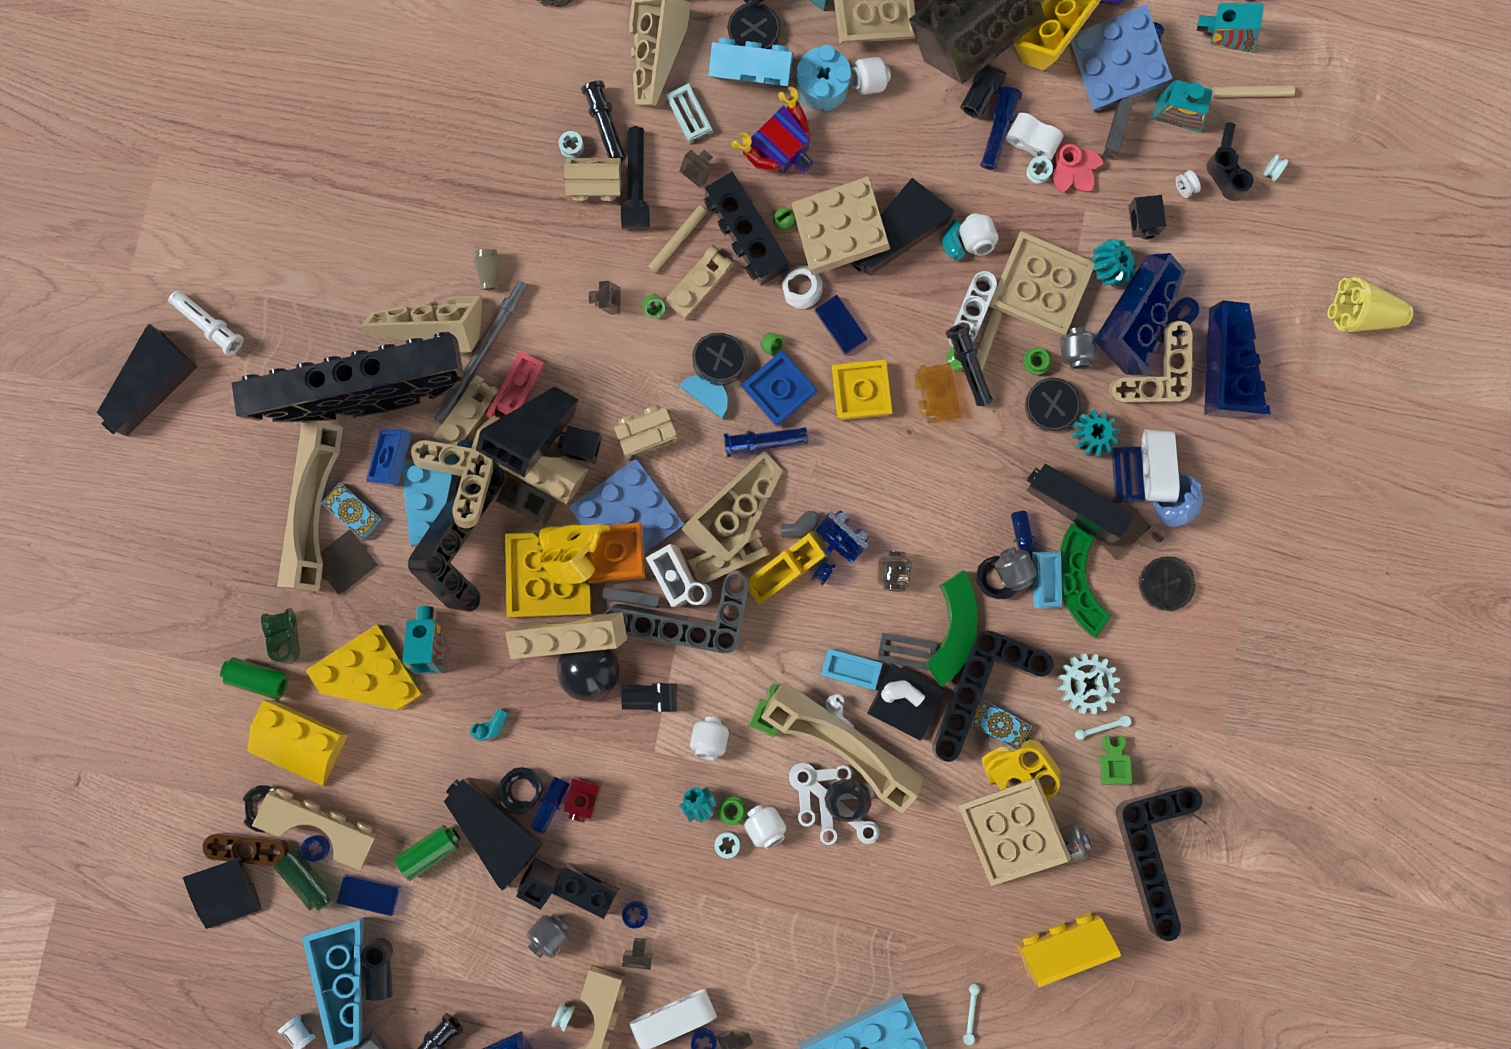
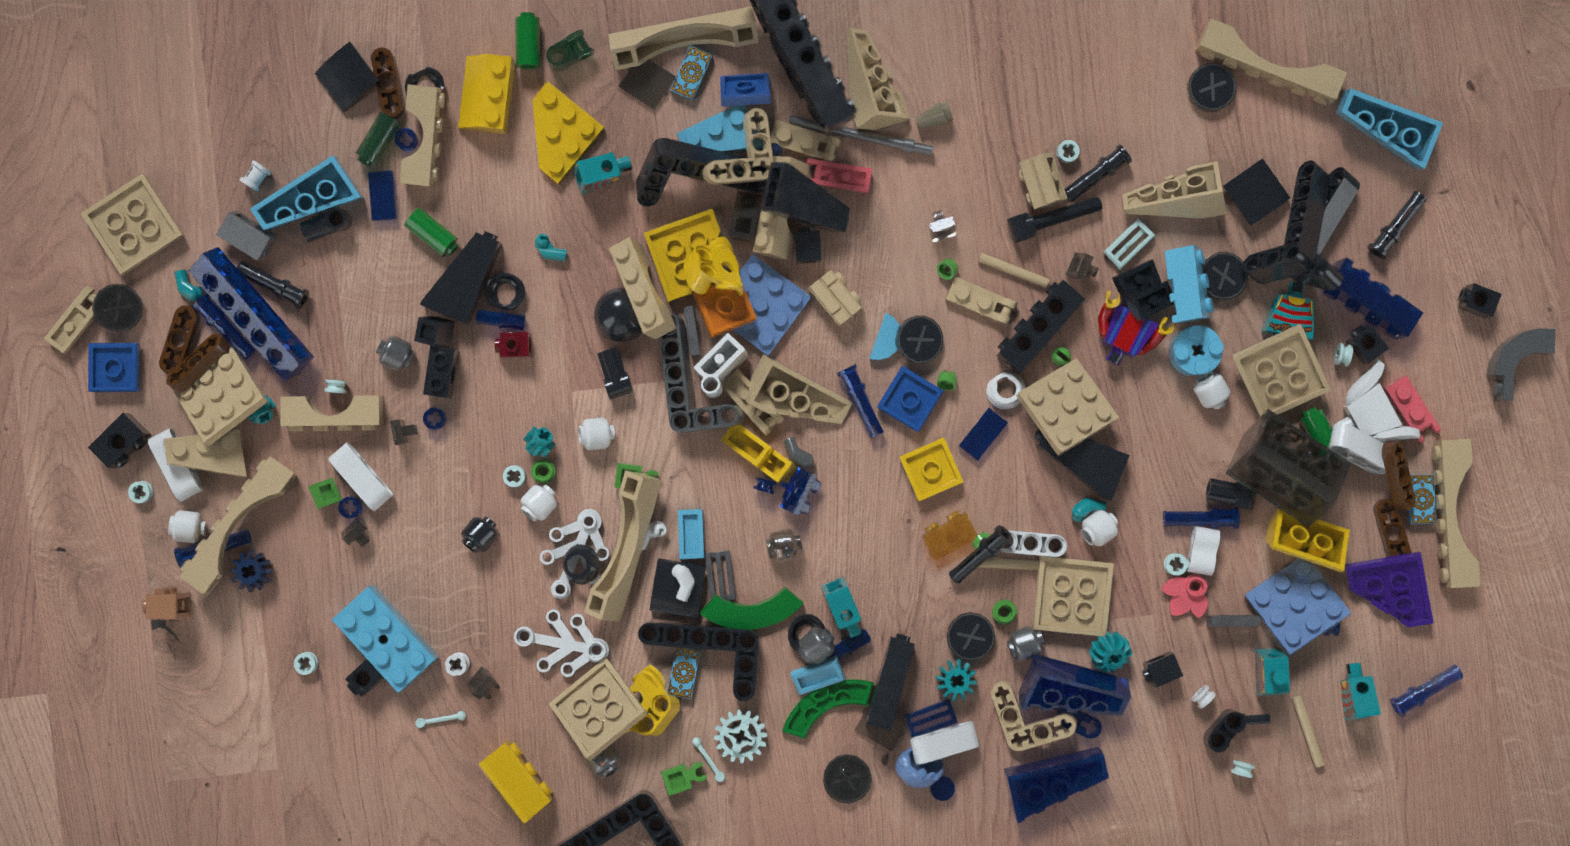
camera: 70 degrees right, 5 degrees up
(743, 111) = (1143, 290): none -> black slope
(779, 904) = (479, 534): none -> black head
(913, 984) = (465, 663): none -> white bush
(930, 846) = (565, 643): none -> white plant
(946, 955) = (481, 684): none -> clear smoke tile
(980, 528) = (840, 599): none -> teal torso
(1209, 483) = (943, 788): none -> clear blue tile

